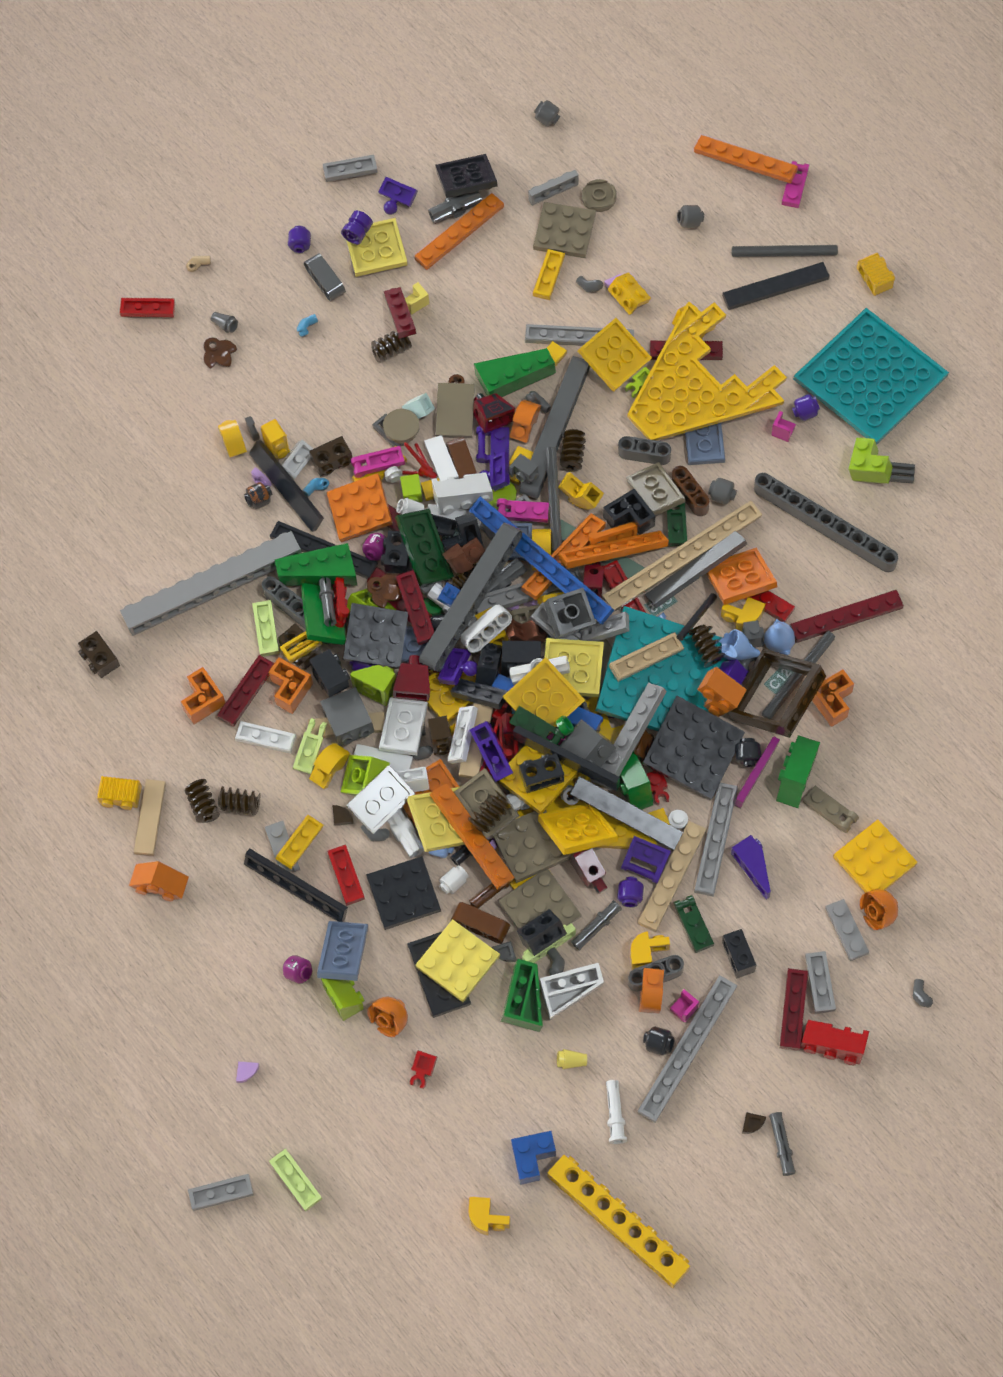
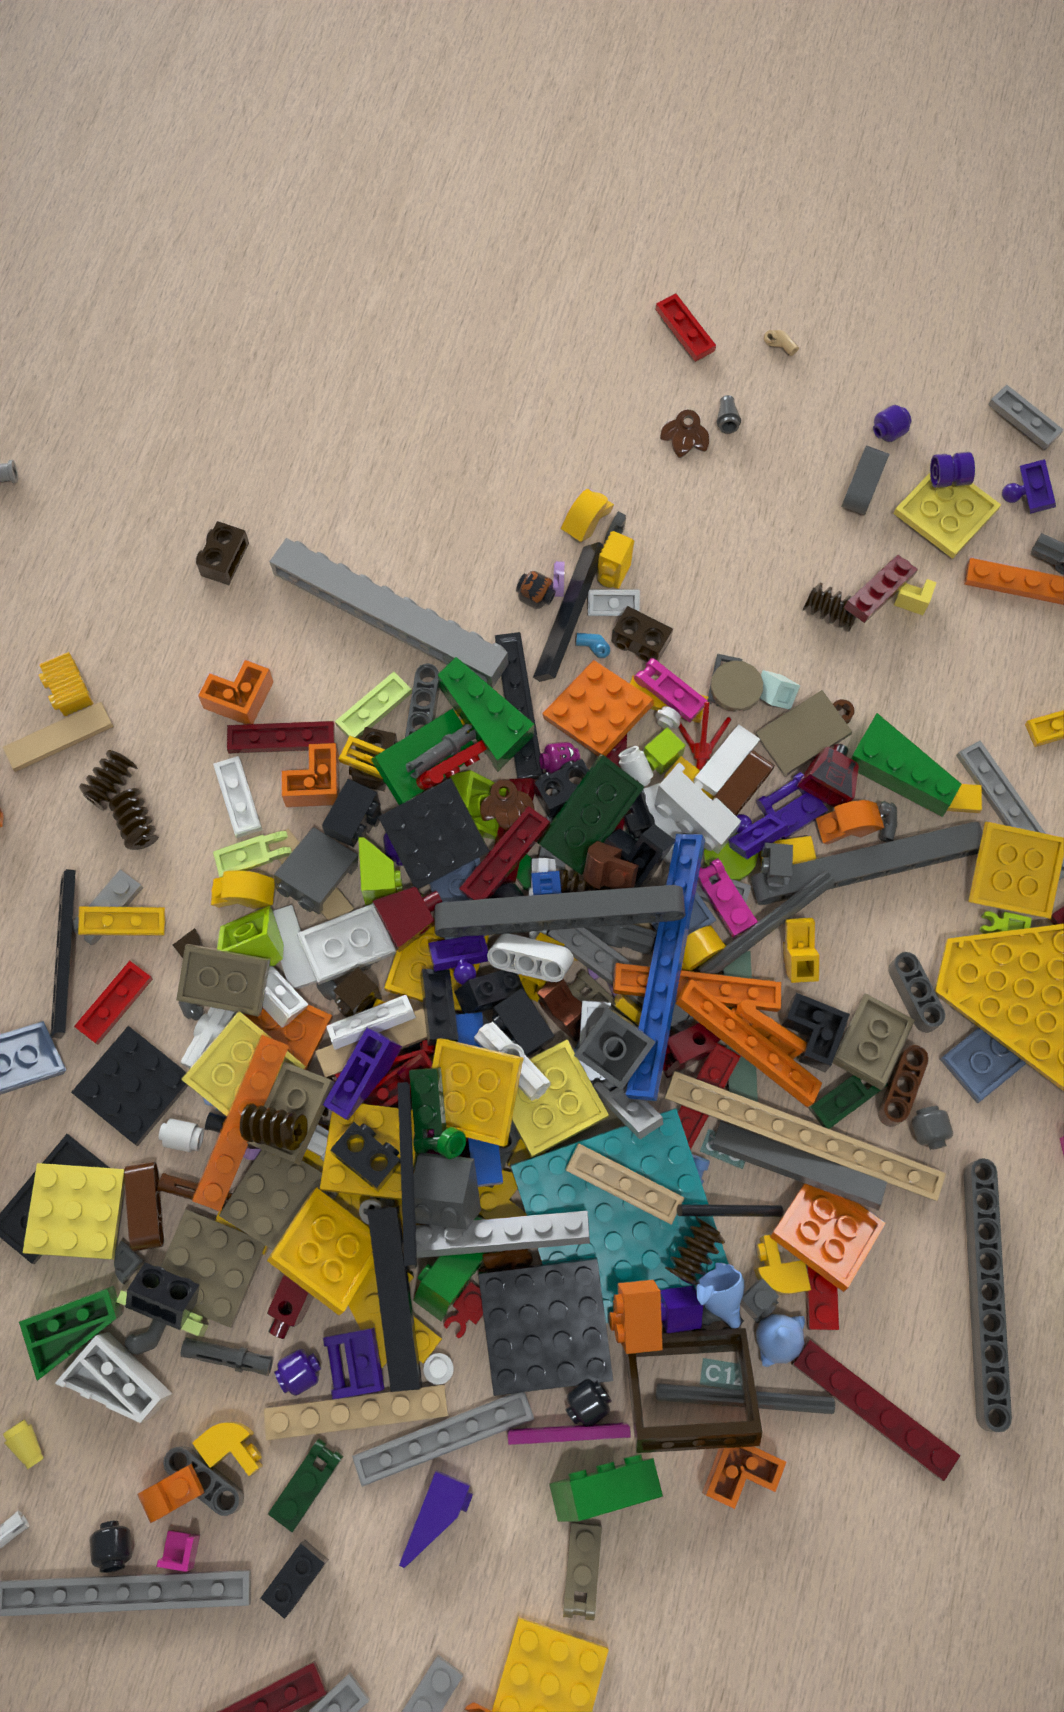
camera: 50 degrees right, 5 degrees up
(304, 323) = (791, 498): dark azure arm -> none
(572, 449) = (850, 903): dark brown piece -> none

